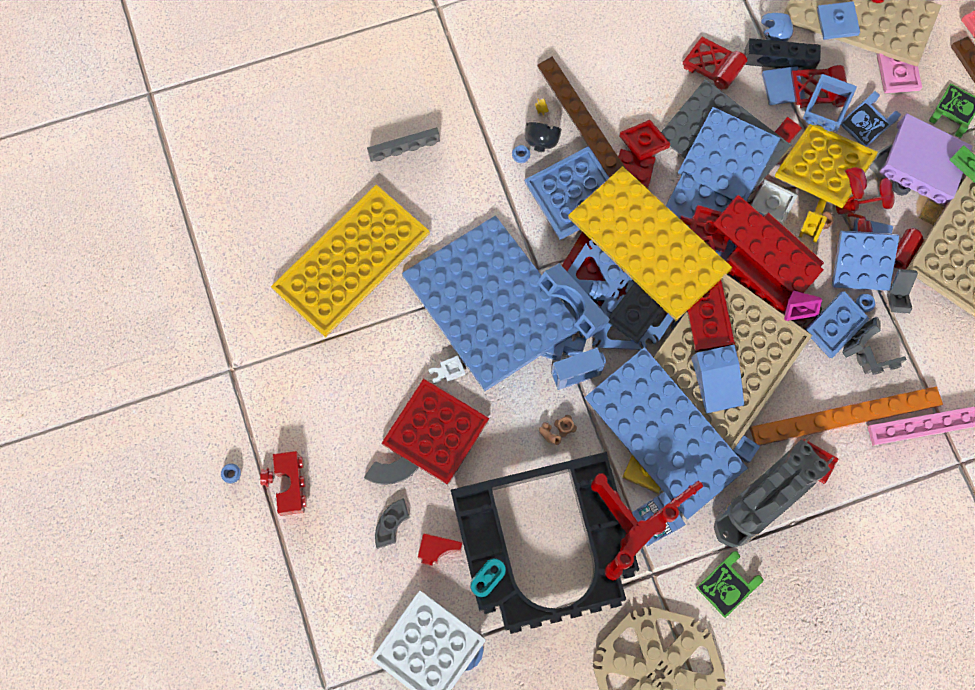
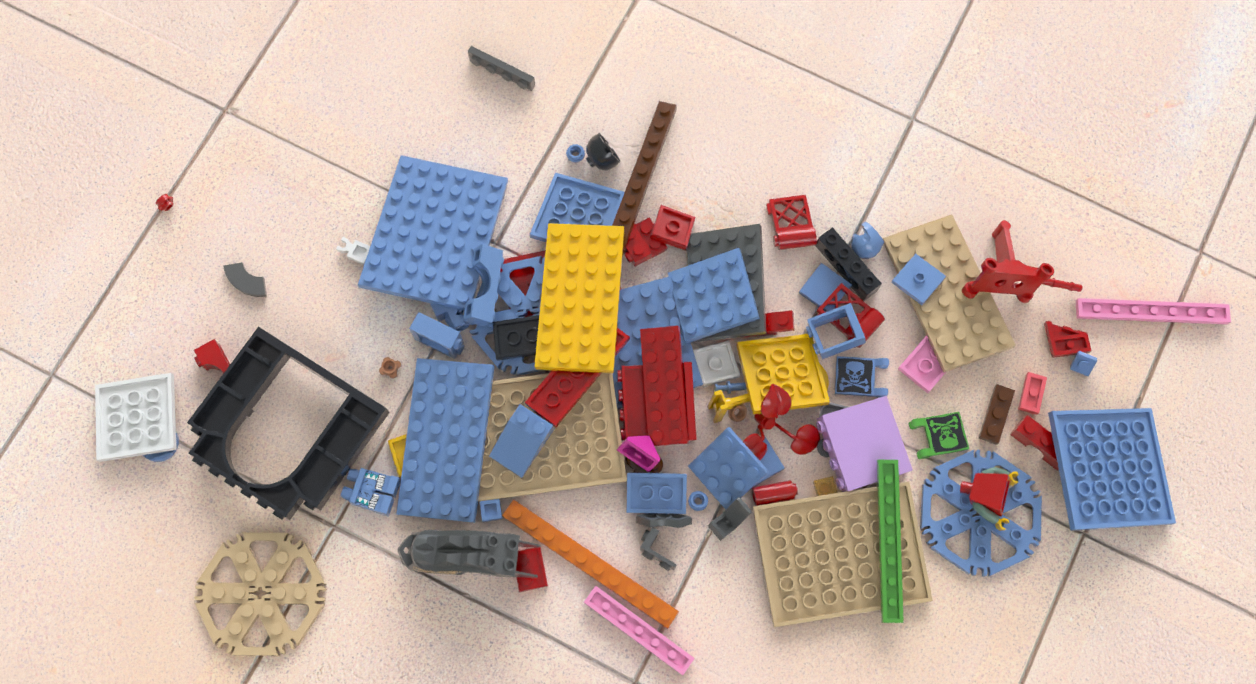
camera: 45 degrees right, 0 degrees up
(226, 469) = (143, 174): medium blue plate -> none
(292, 500) = (185, 213): red arch -> none
(350, 260) = (377, 113): yellow plate -> none
(389, 522) = (207, 312): dark grey tile -> none
(435, 431) = (301, 283): red plate -> none
(489, 579) = (213, 406): teal plate -> none
(541, 106) = (628, 133): yellow plate -> none
(551, 438) = (371, 361): nougat arm -> none
(595, 290) = (507, 293): medium blue plate -> none
(637, 532) = (338, 482): red piece -> none
(702, 225) = (631, 326): red plate -> none
(726, 588) = (370, 587): flag -> none
(800, 209) = (730, 387): none -> medium blue piece

